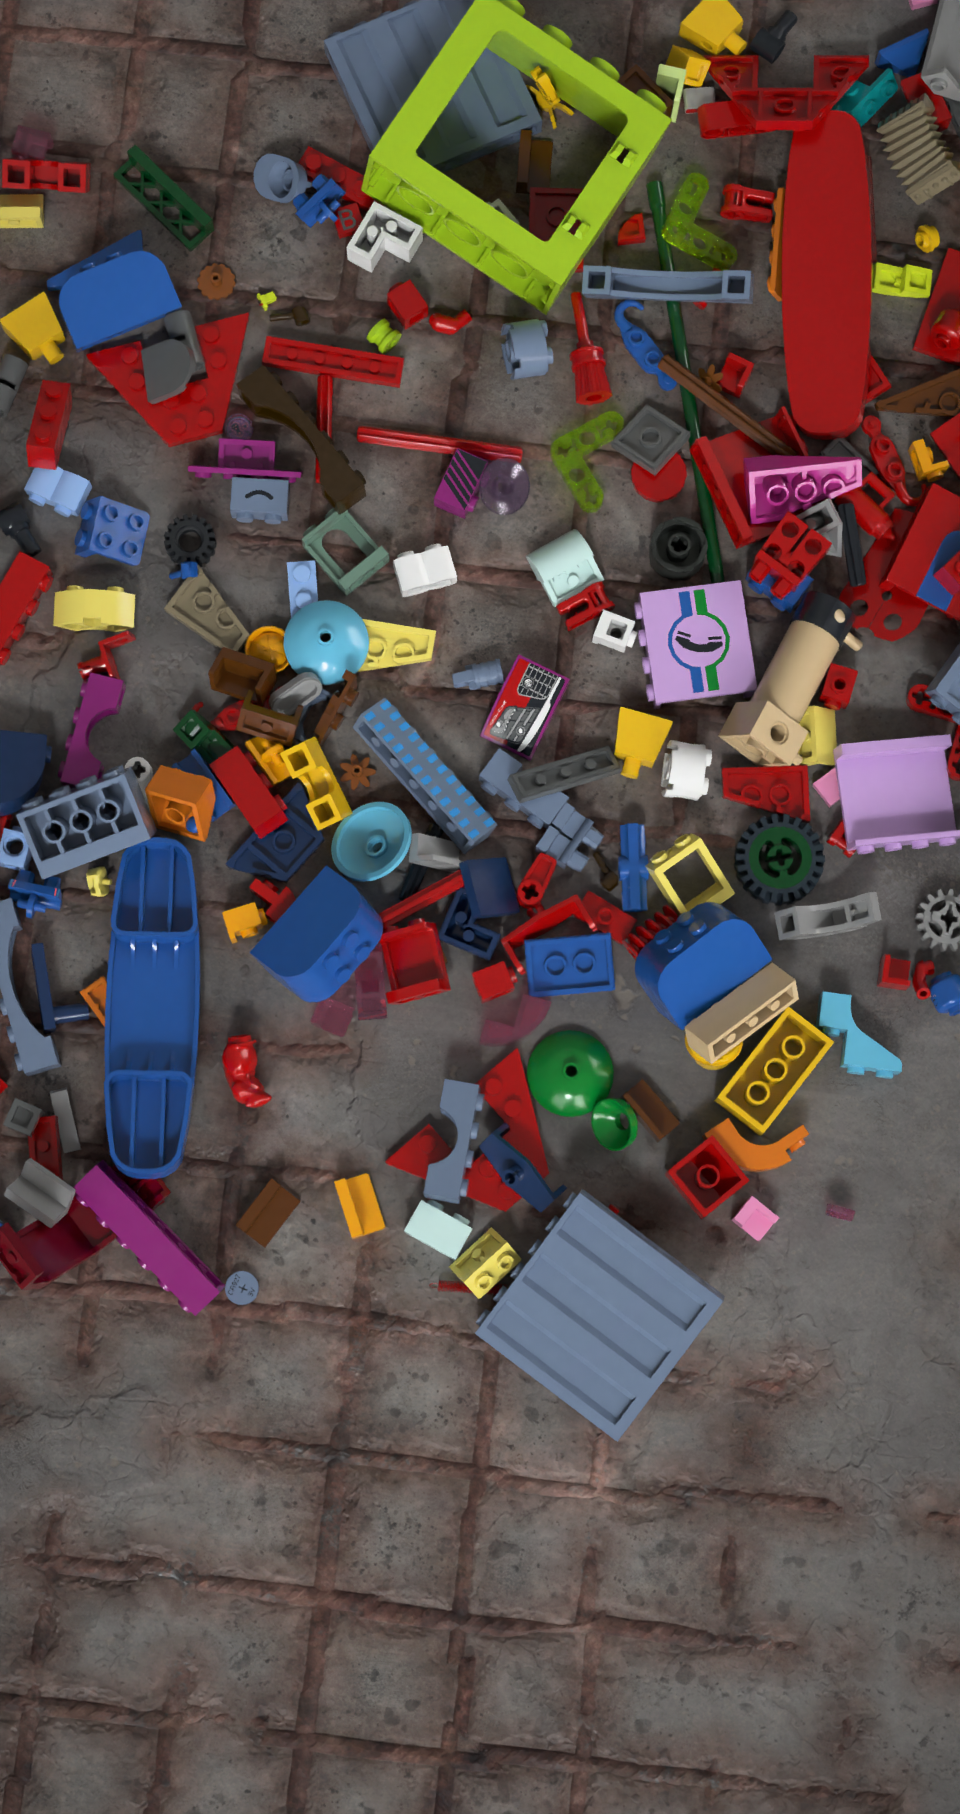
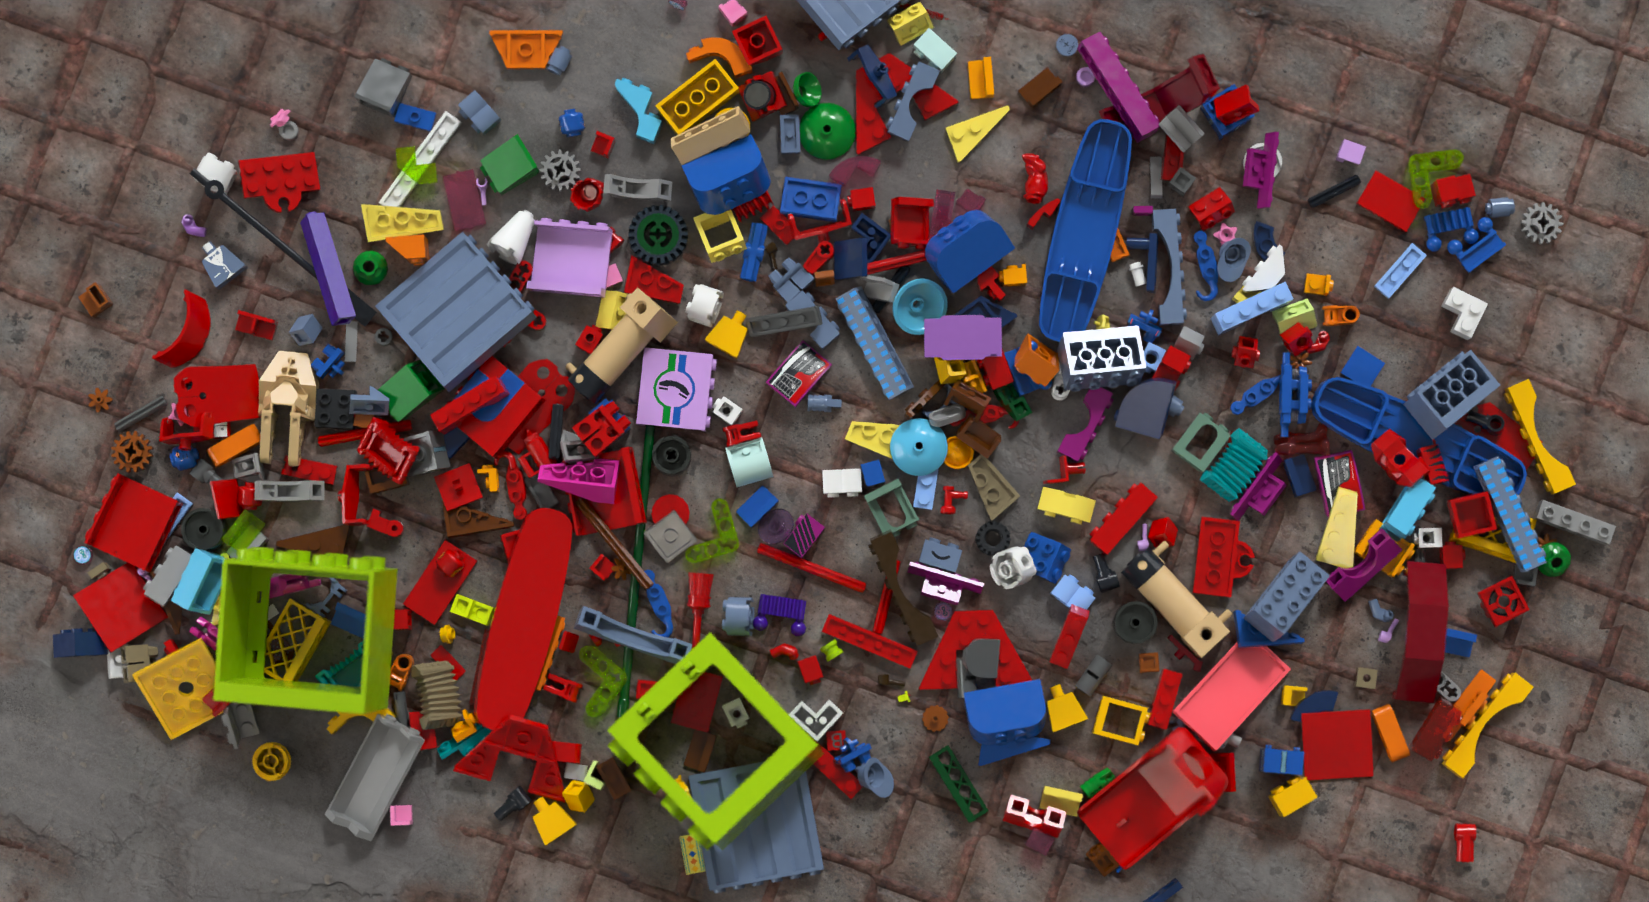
camera: 160 degrees left, 5 degrees up
(61, 968) = (1138, 274): none -> white pin
(74, 1062) = (1142, 210): none -> magenta tile
(151, 501) = (1012, 567): none -> white brick
(188, 569) = (999, 517): blue hand -> none
(203, 1245) = (1085, 77): none -> lavender tile
(214, 1030) = (1046, 210): none -> red slope
(266, 590) = (949, 494): none -> red piece
(296, 800) = (963, 337): none -> medium lavender piece
(356, 777) = (917, 363): dark orange plant -> none
(356, 1121) = (967, 134): none -> light yellow wing
(383, 592) = (872, 473): none -> blue panel
(467, 381) = (781, 607): none -> dark purple gear
(520, 853) = (824, 278): none -> dark orange tile
(537, 510) = (757, 506): none -> blue panel
(623, 1054) = (790, 134): none -> sand blue plate
(681, 1097) = (760, 95): none -> piece
(757, 264) = (569, 642): none -> red slope
(869, 114) = (464, 728): none -> light orange bracket
(899, 890) = (587, 194): none -> red hair
(904, 55) = (425, 768): blue slope -> none
(919, 982) = (588, 136): red arm -> none
(925, 212) = (442, 654): none -> red sticker

